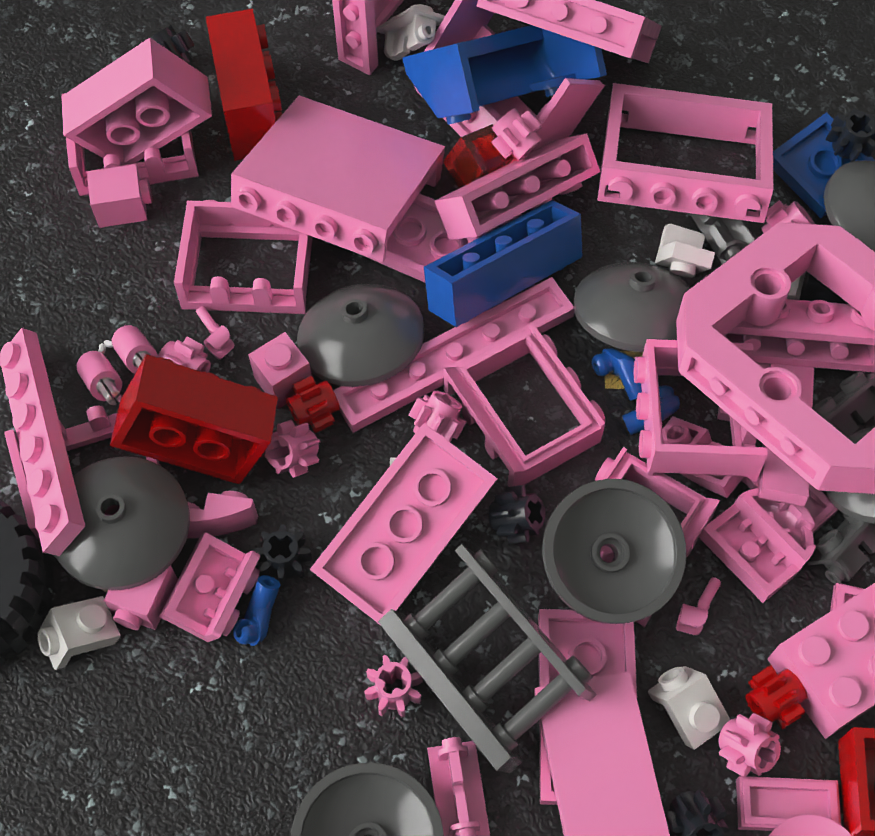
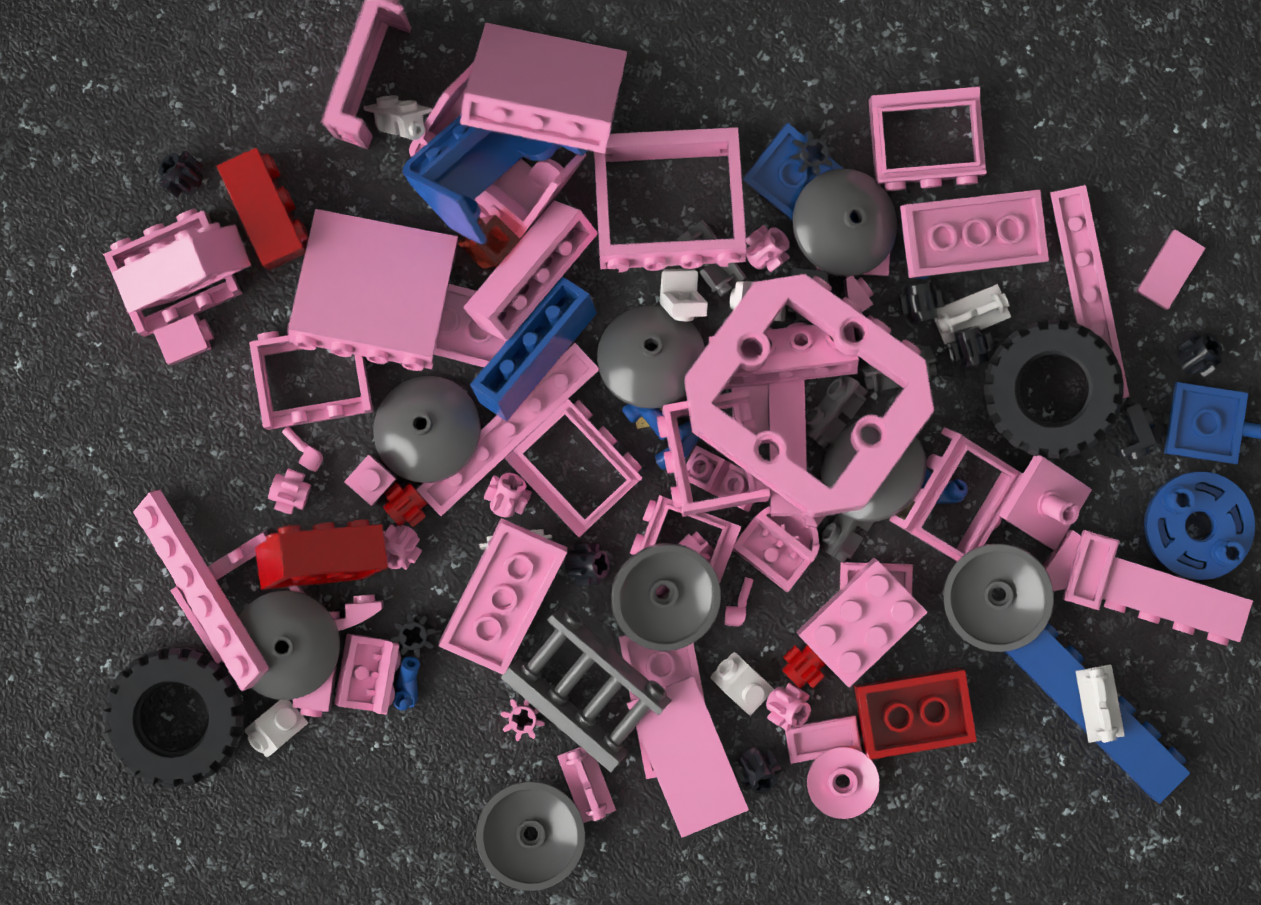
camera: 10 degrees left, 25 degrees up
(100, 374) = (249, 494): bright pink piece -> none
(516, 134) = (520, 229): bright pink gear -> none

